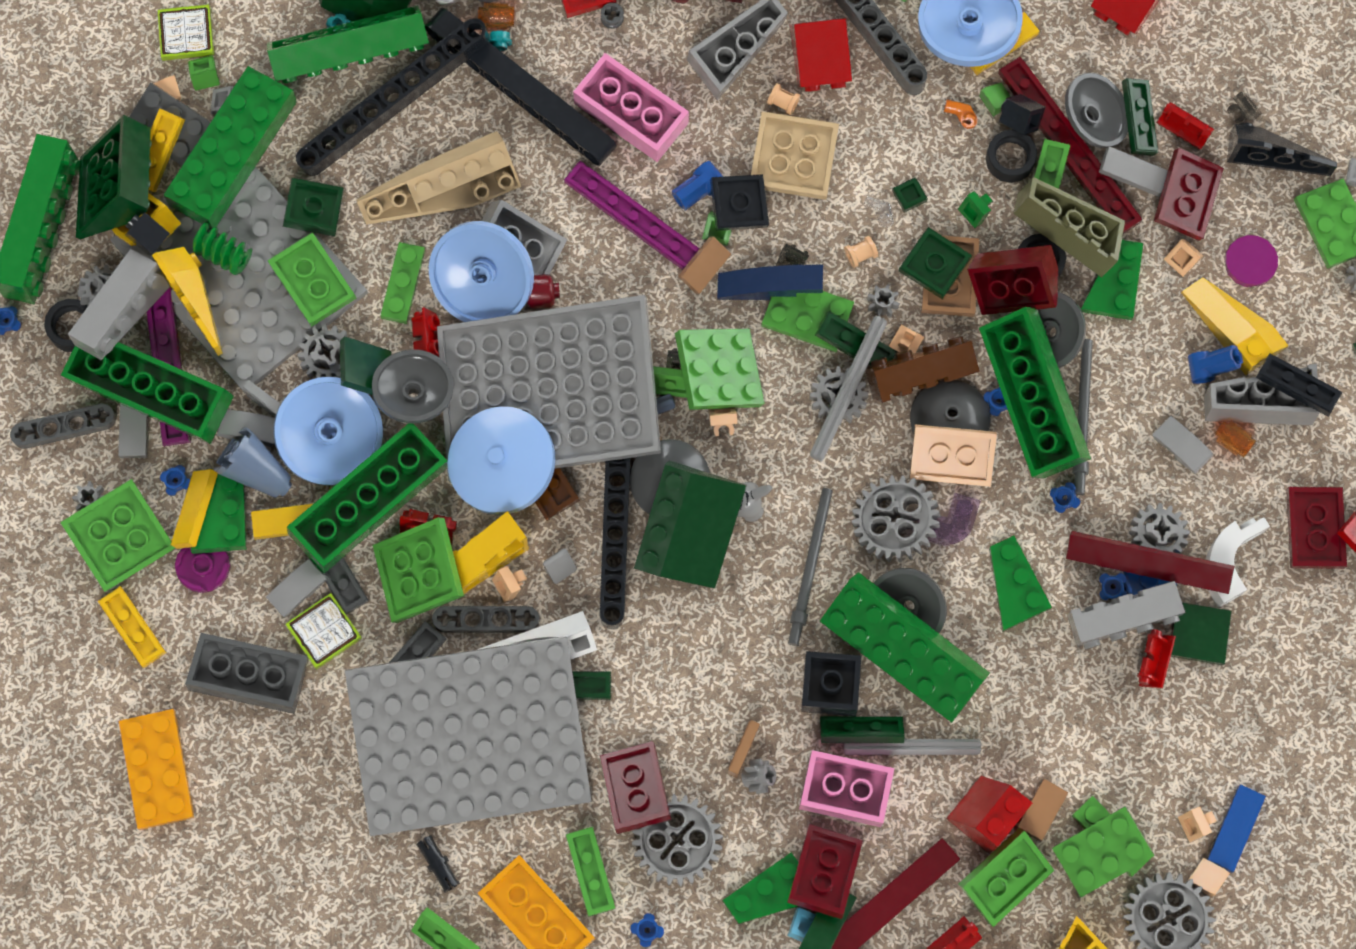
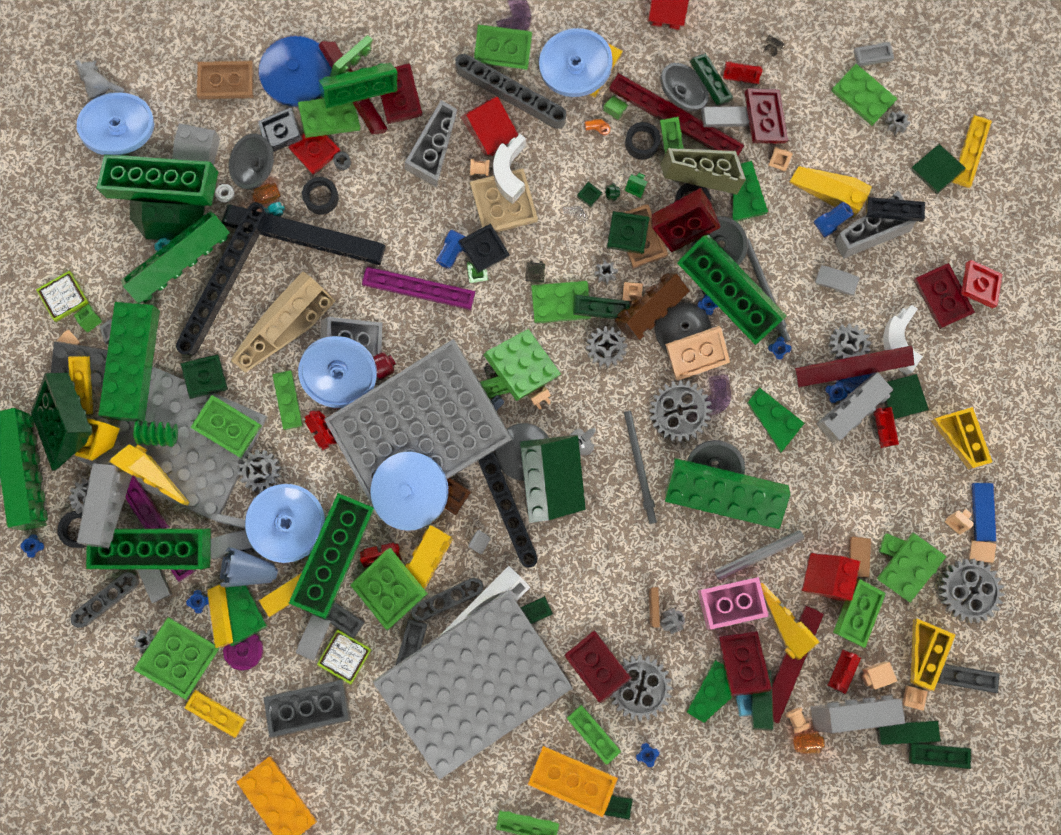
camera: 25 degrees left, 5 degrees up
(146, 233) = (98, 448): black brick -> none
(359, 363) = (290, 469): dark green tile -> none
(412, 373) = (321, 459): dark grey dish -> none
(437, 863) = (492, 776): black pin -> none
(508, 583) = (451, 569): light nougat tile -> none
(565, 65) = (321, 209): none -> black tyre
(631, 107) = (383, 216): bright pink brick -> none
(704, 265) = (480, 299): medium nougat tile -> none
(770, 282) = (528, 291): dark blue slope -> none
(807, 131) = (506, 182): none -> white arch
(831, 683) = (691, 539): black brick -> none
(848, 388) = (612, 340): light grey axle -> none
(861, 251) = (576, 245): light nougat bush -> none
(861, 729) = (723, 559): dark green tile -> none
(906, 861) = (794, 635): none -> yellow wedge
(940, 204) = (612, 192): none -> dark green plate
(1021, 114) = (637, 110): black brick -> none
(1235, 438) = (868, 261): clear orange brick -> none
(1251, 261) = (823, 142): magenta tile -> none
(1253, 717) = (964, 437): none -> yellow wedge
(1265, 149) = (801, 65): black wedge -> none

